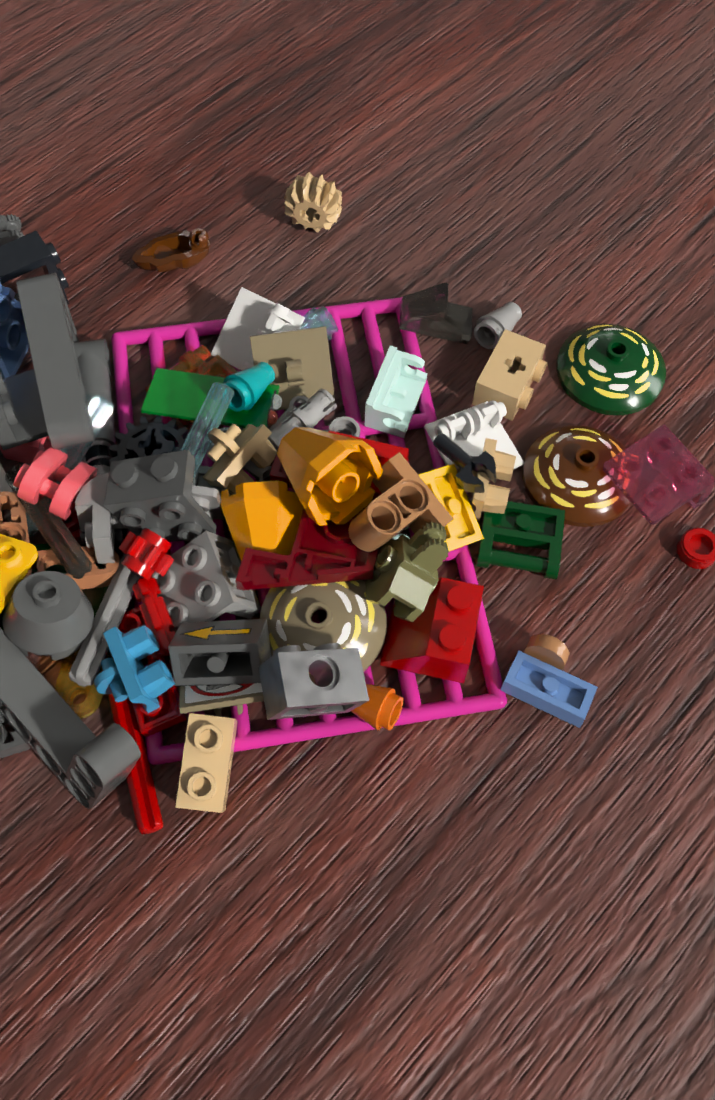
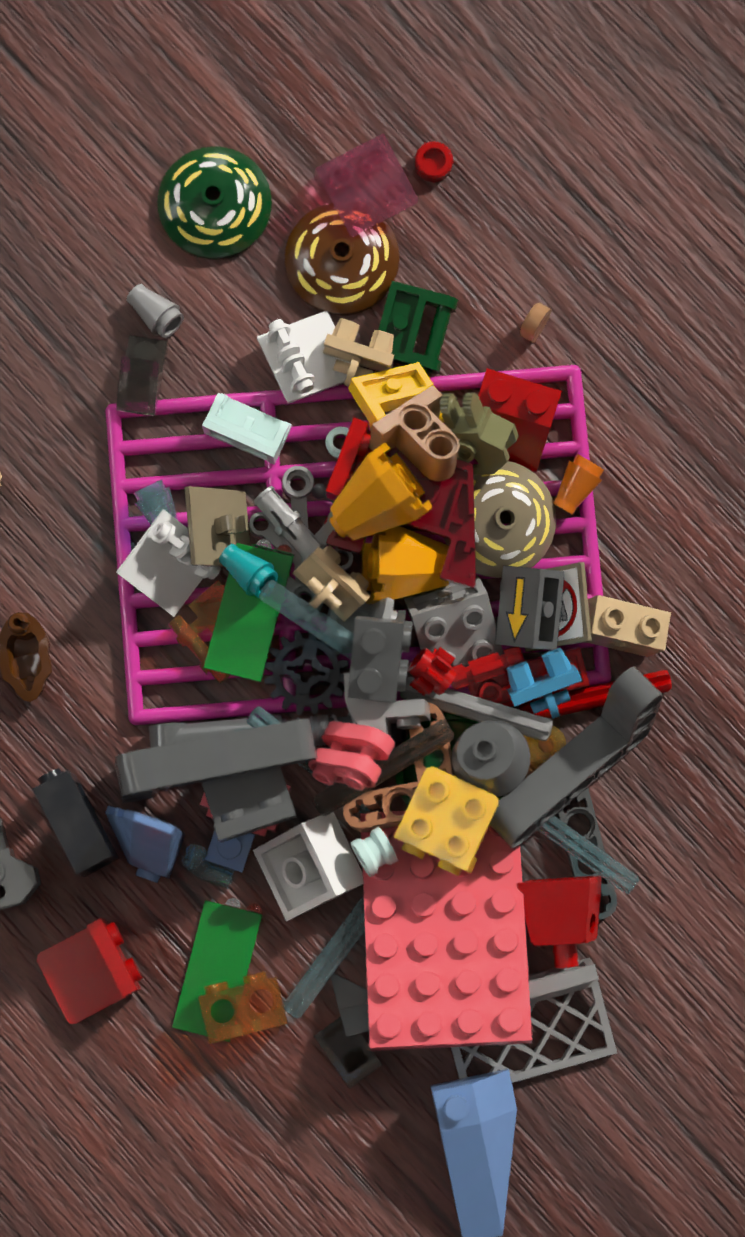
camera: 85 degrees left, 20 degrees up
(291, 692) = (574, 525): flat silver brick -> none
(465, 479) = (352, 367): black bar -> none
(511, 372) = (235, 327): tan brick -> none
(549, 689) = (569, 326): medium blue plate -> none

